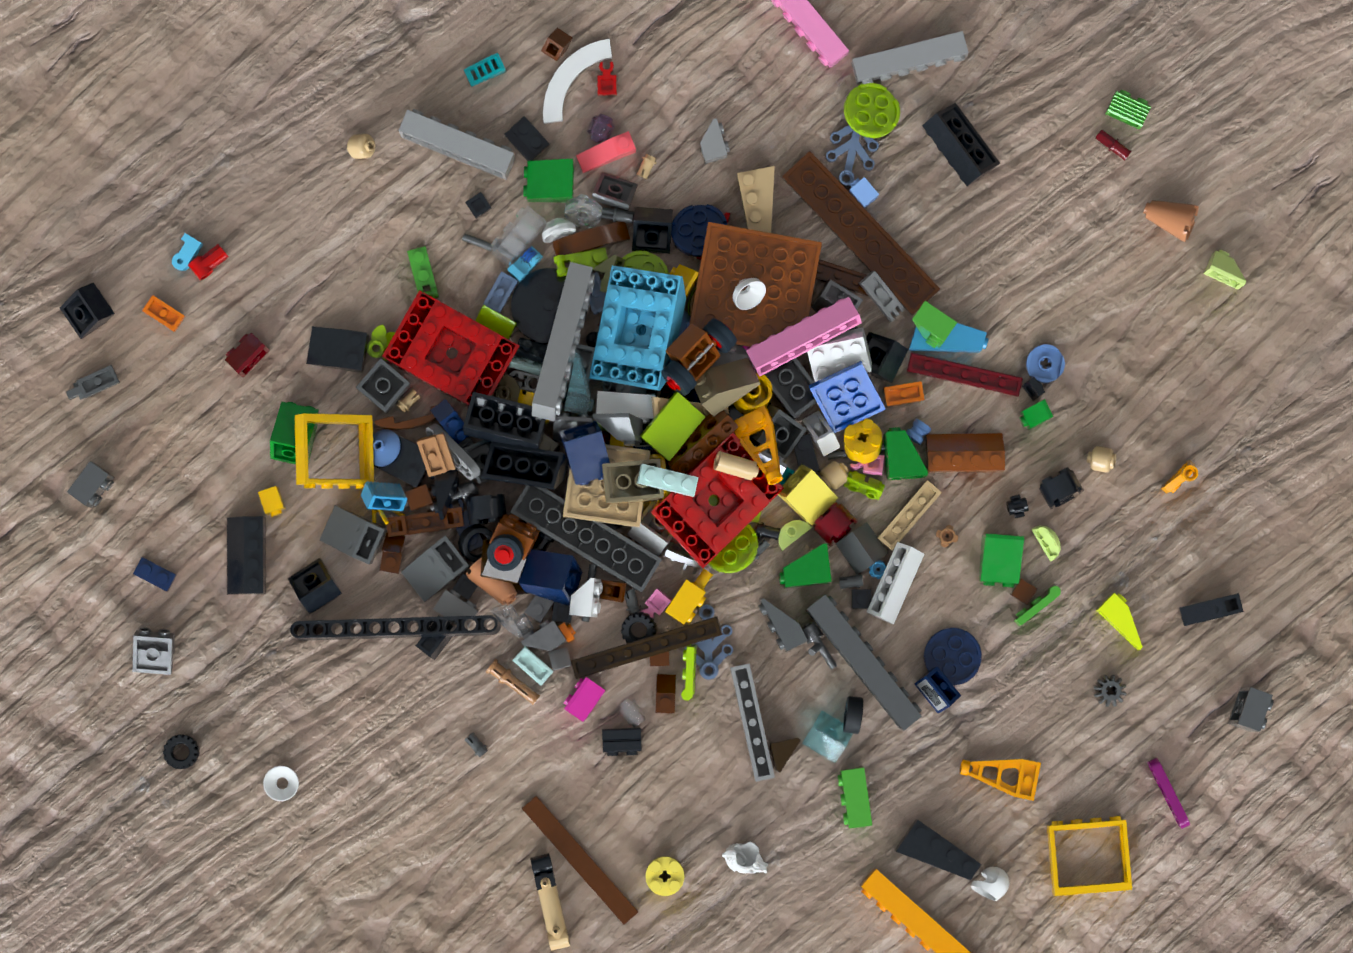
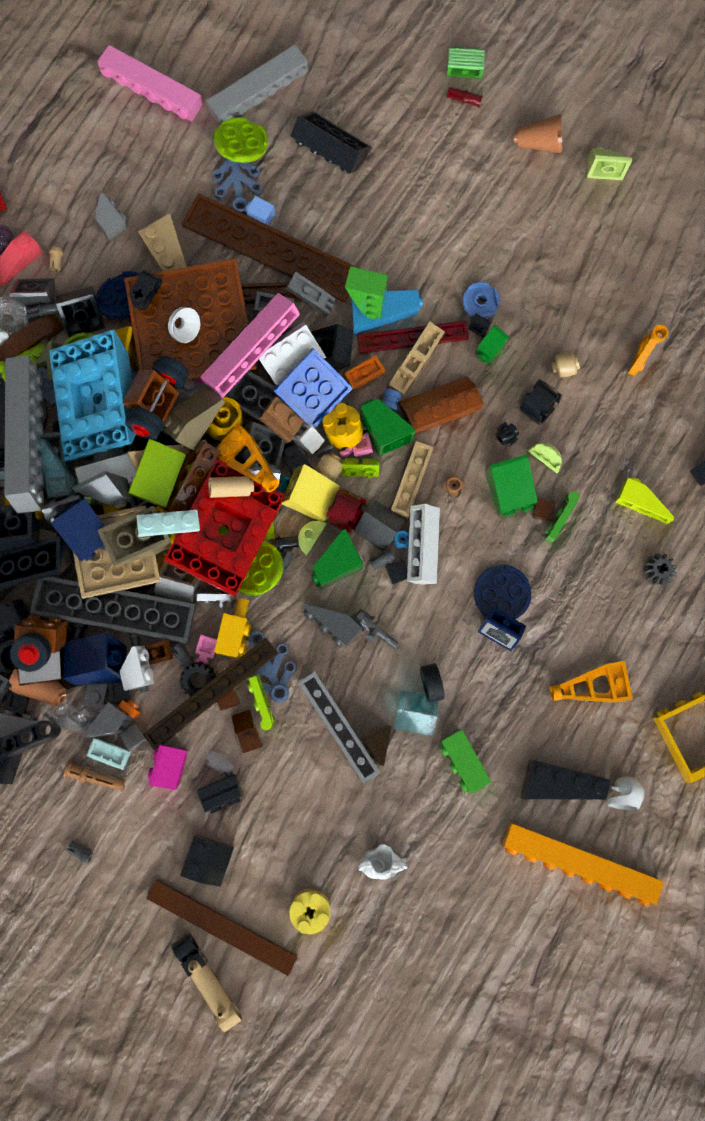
camera: 20 degrees left, 5 degrees down
(588, 796) = (207, 861): none -> black slope
(727, 241) = (145, 289): none -> black piece
(806, 415) = (281, 419): none -> medium nougat plate
(863, 662) = (423, 629): dark grey brick -> none
(958, 399) = (416, 358): none -> tan slope

